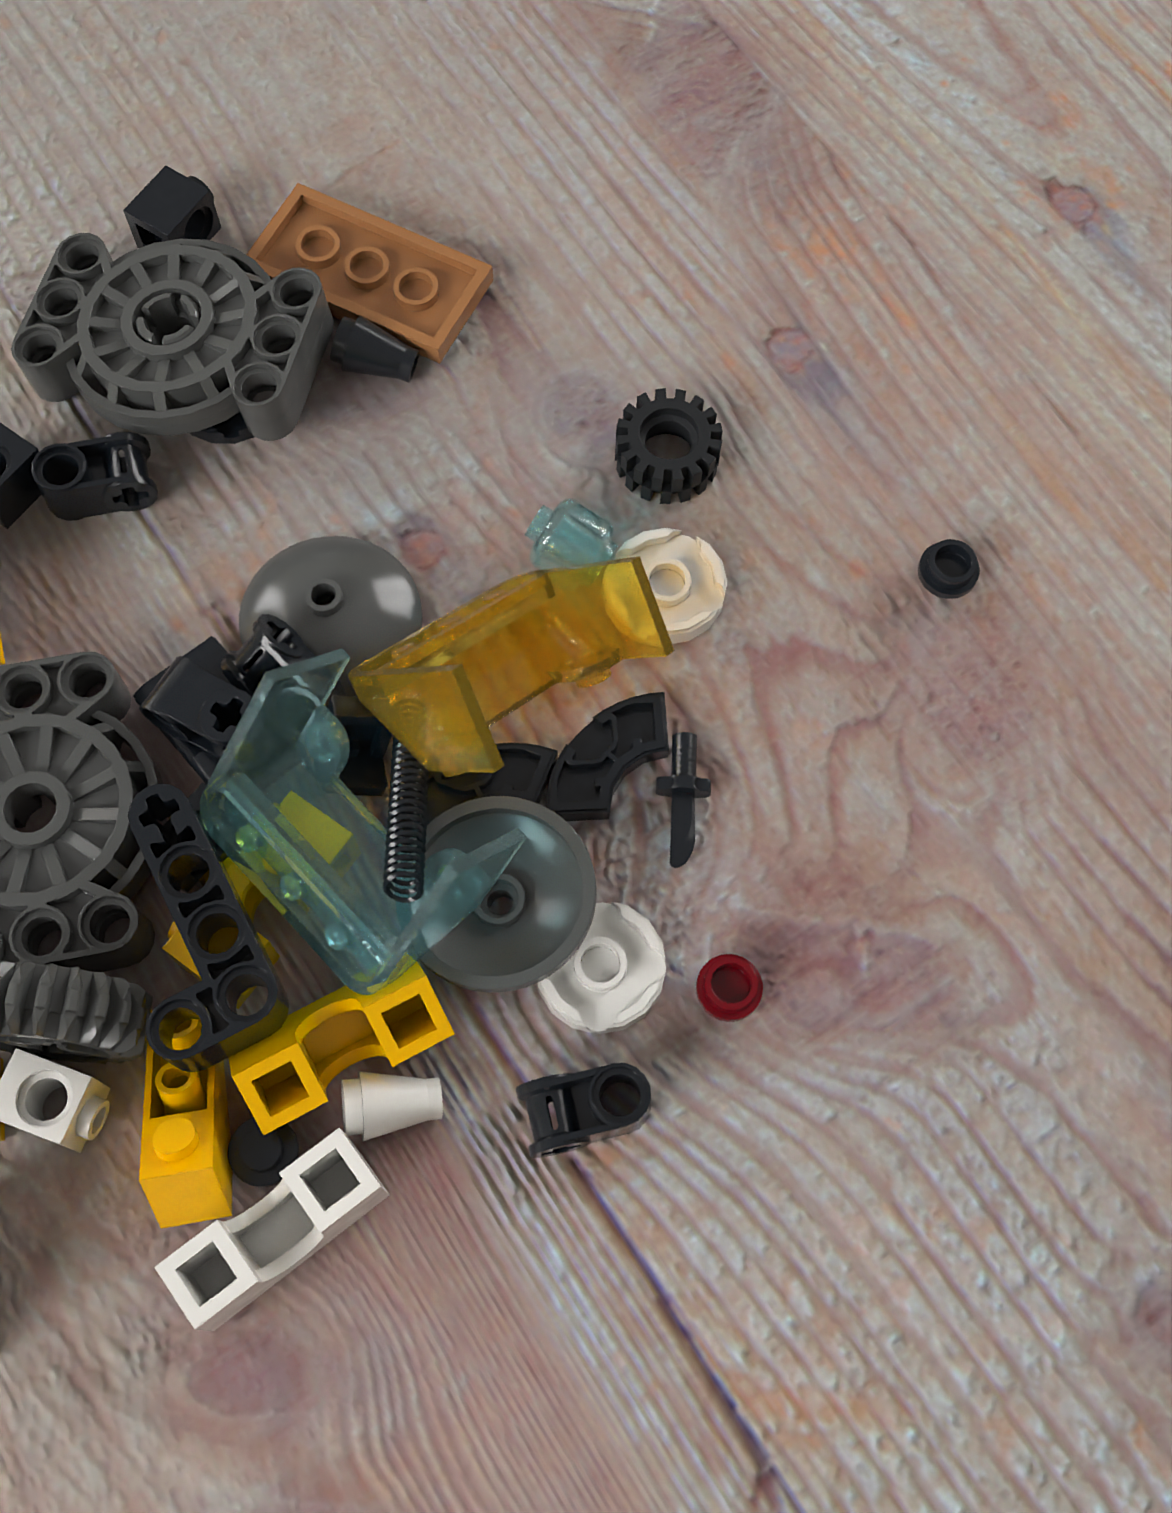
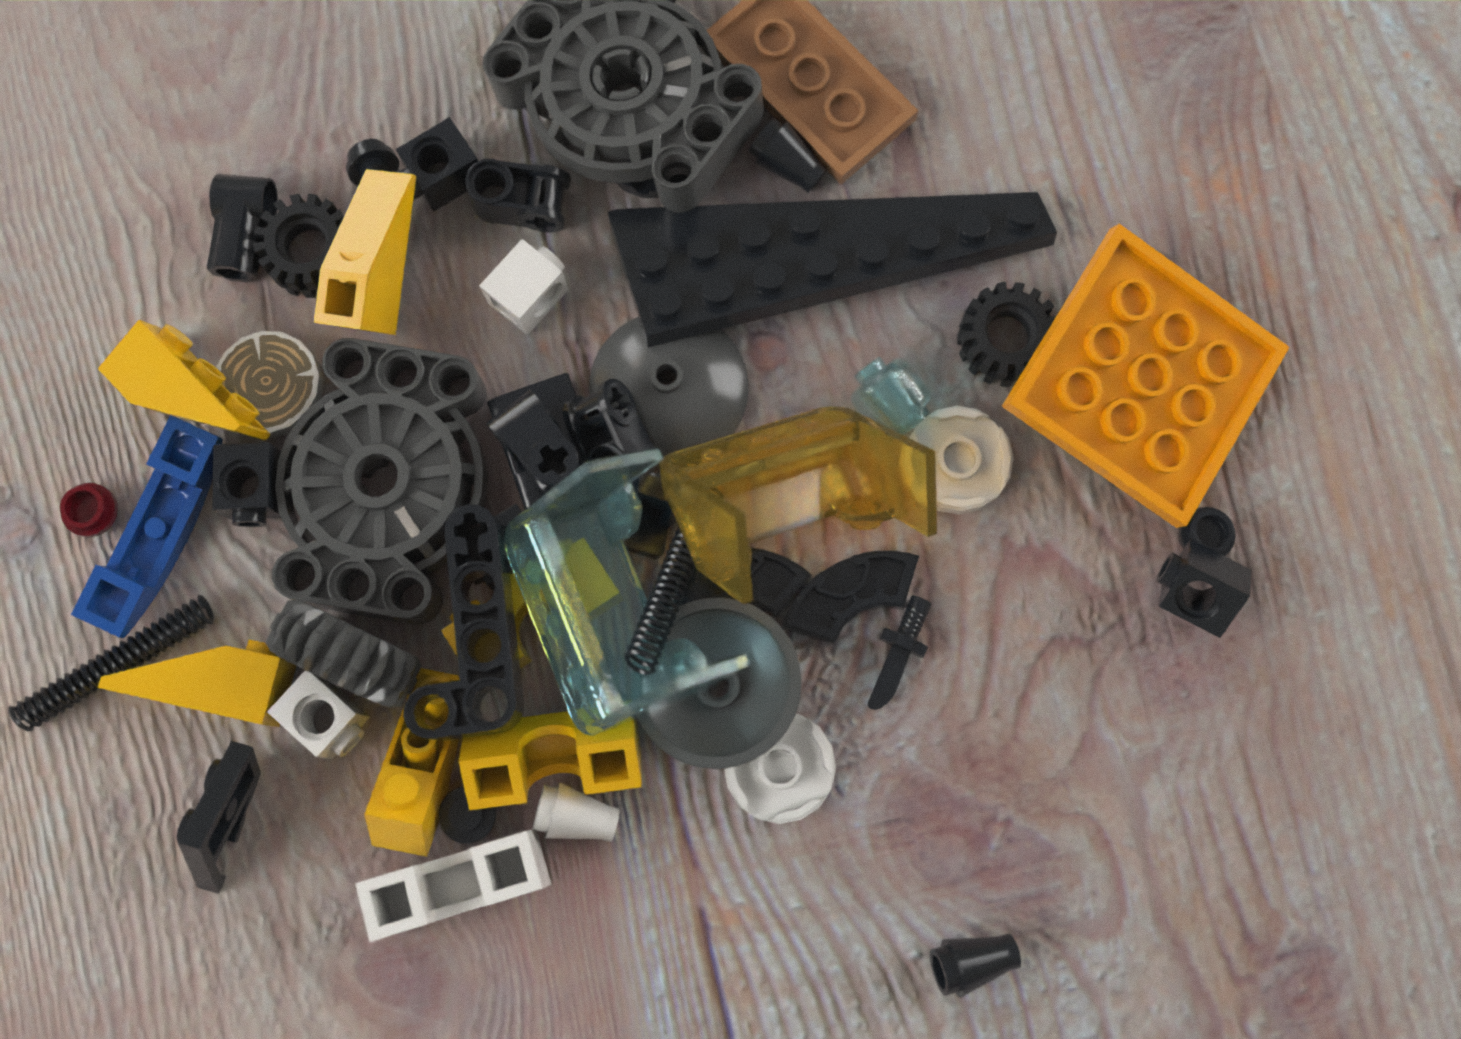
camera: 25 degrees right, 10 degrees up
(135, 564) = (525, 285): none -> white brick
(387, 455) = (773, 258): none -> black wing
(579, 1108) = (718, 878): black piece -> none
(729, 987) = (875, 825): dark red plate -> none
(823, 436) = (1146, 376): none -> light orange plate
(891, 1095) = (970, 963): none -> black cone
(990, 631) = (1208, 608): none -> black brick

